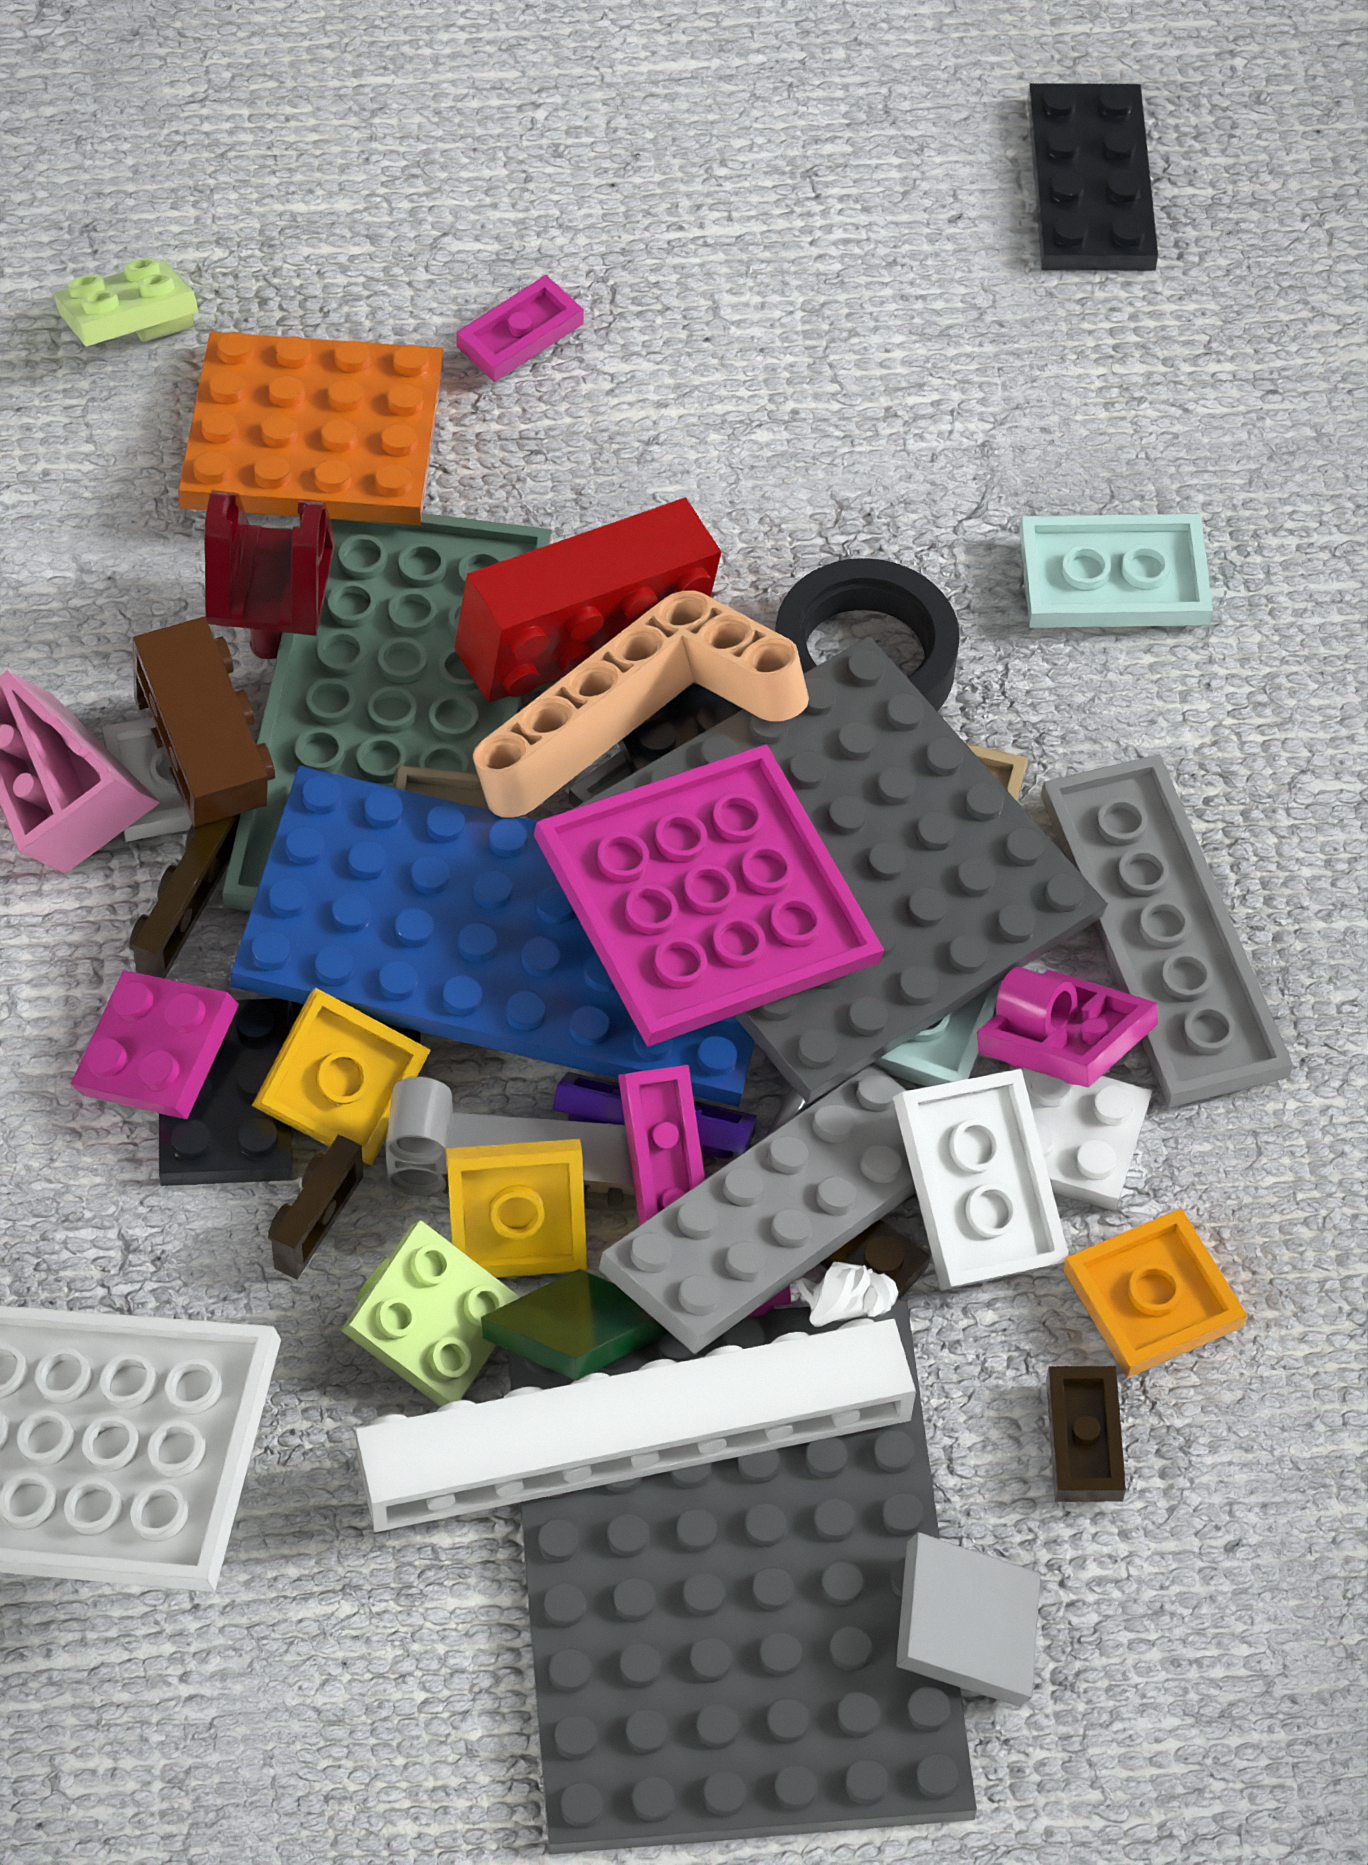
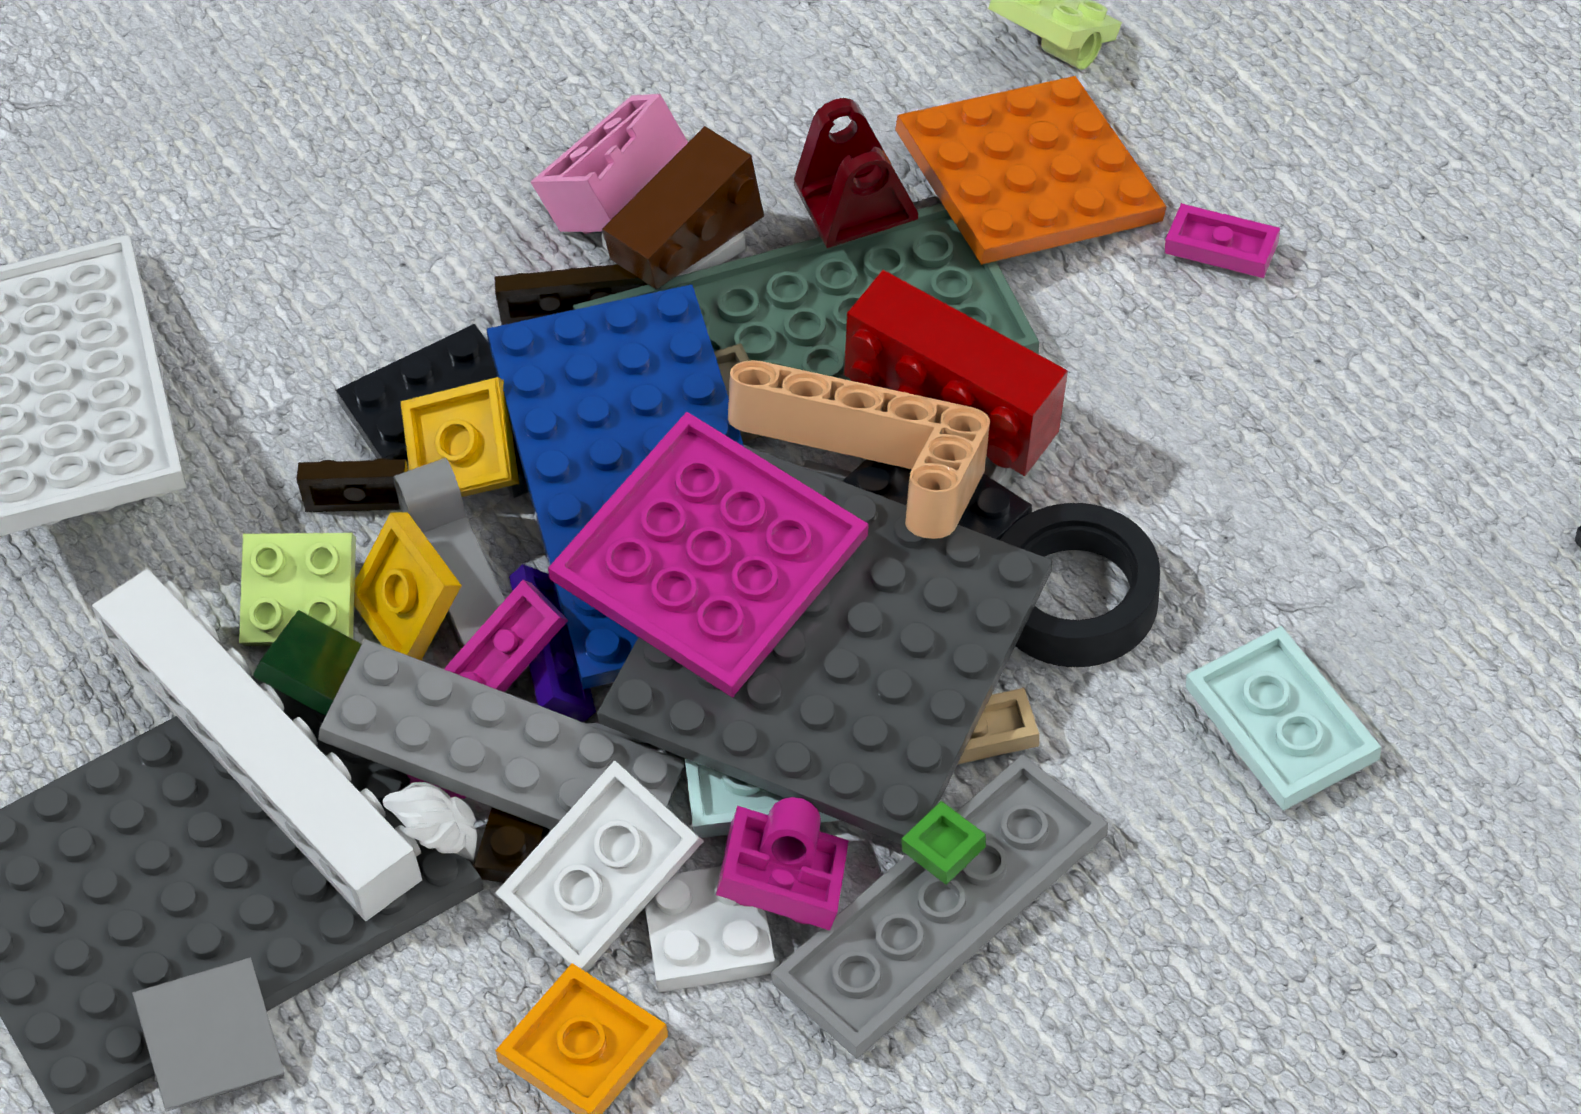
camera: 70 degrees right, 5 degrees down
(155, 1044) = (428, 331): dark pink plate -> none
(1085, 1434) = (424, 1049): dark brown plate -> none
(1125, 882) = (943, 842): none -> bright green plate

